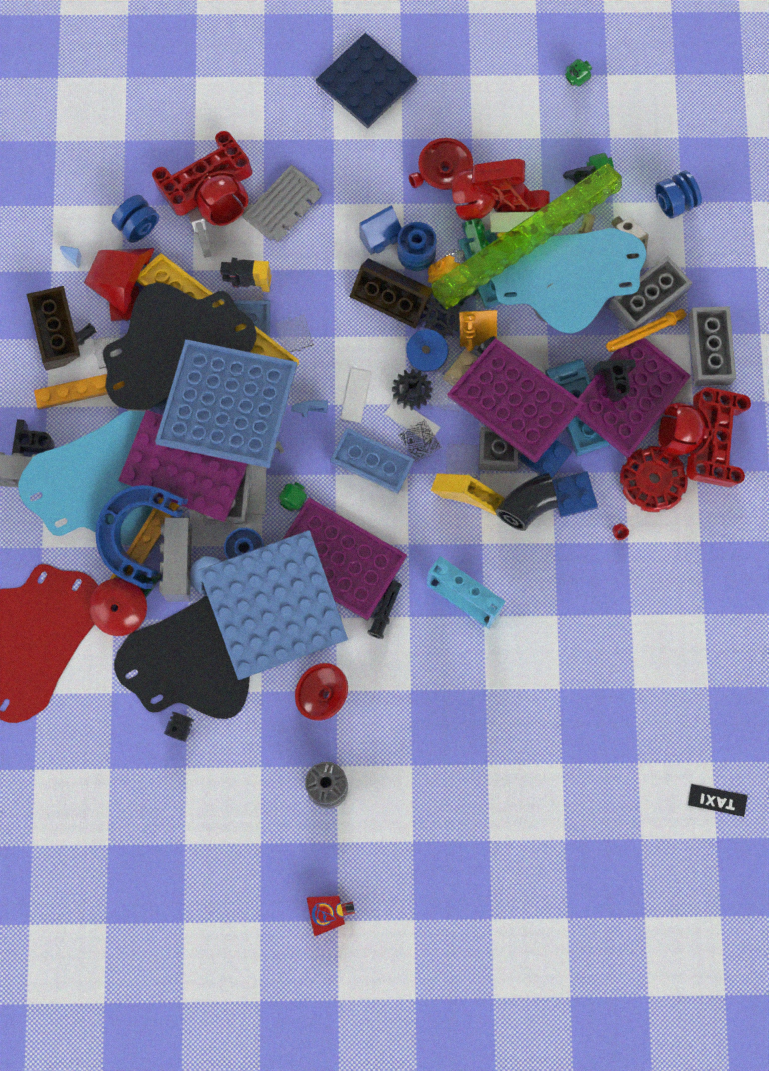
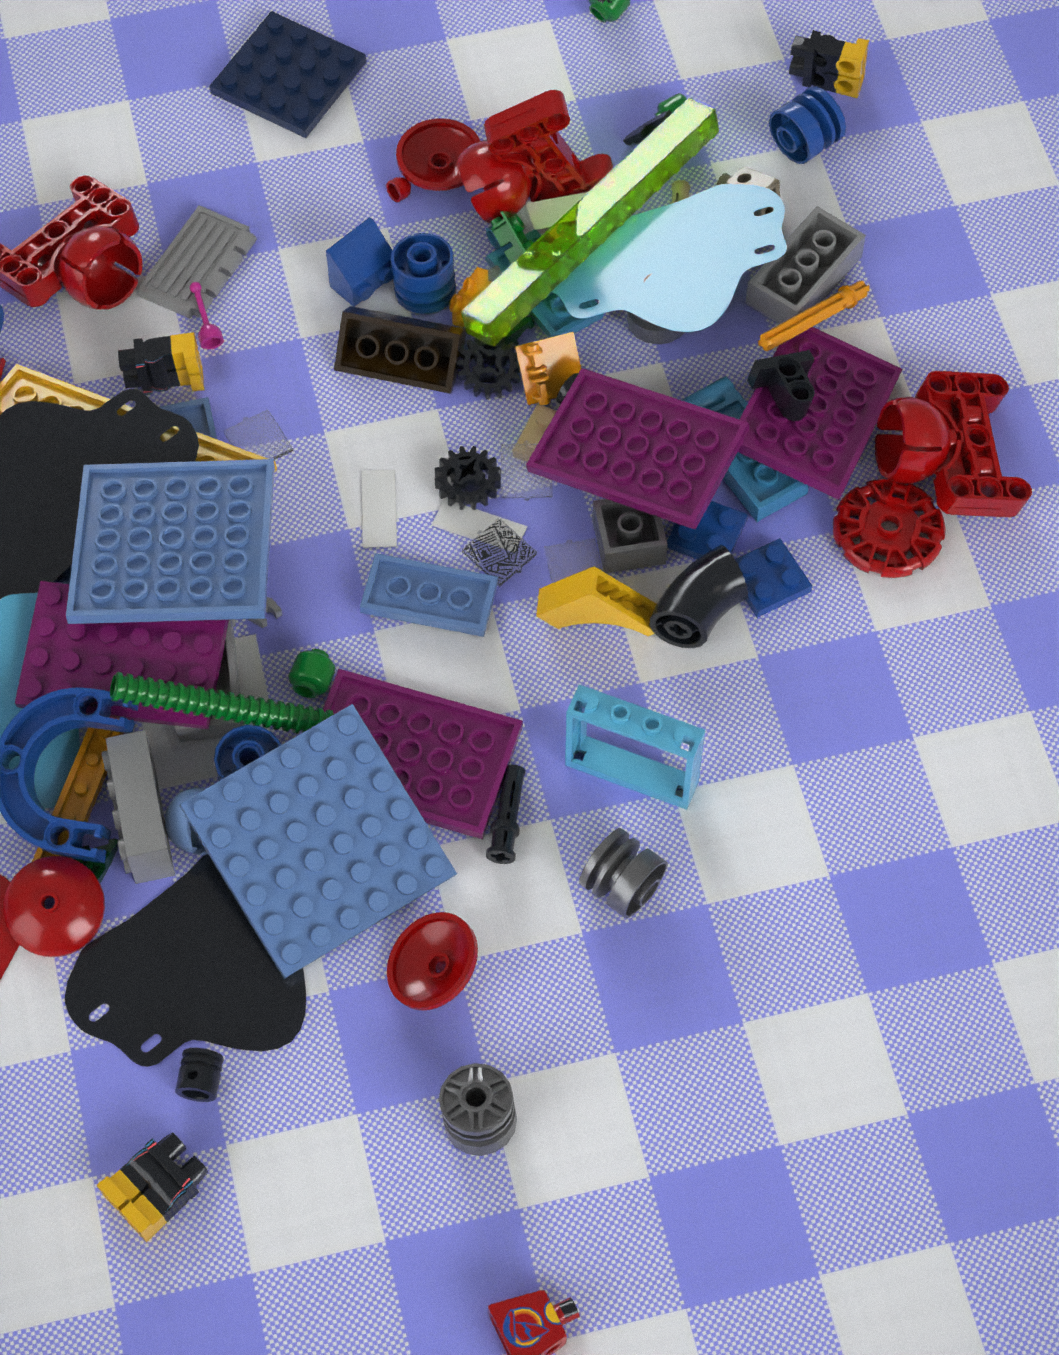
camera: 10 degrees left, 15 degrees down
(146, 781) = (153, 1185): none -> black hips
(199, 227) = (70, 315): light grey piece -> none
(233, 513) = (215, 704): none -> green piece
(279, 256) = (209, 334): none -> dark pink hinge
(313, 406) = (311, 534): medium blue slope -> none
(427, 350) = (478, 414): blue wheel -> none
(442, 666) = (618, 869): none -> flat silver wheel
(623, 529) = (863, 612): red hinge -> none
(704, 151) = (830, 63): none -> black hips
(712, 346) = (922, 318): light grey brick -> none

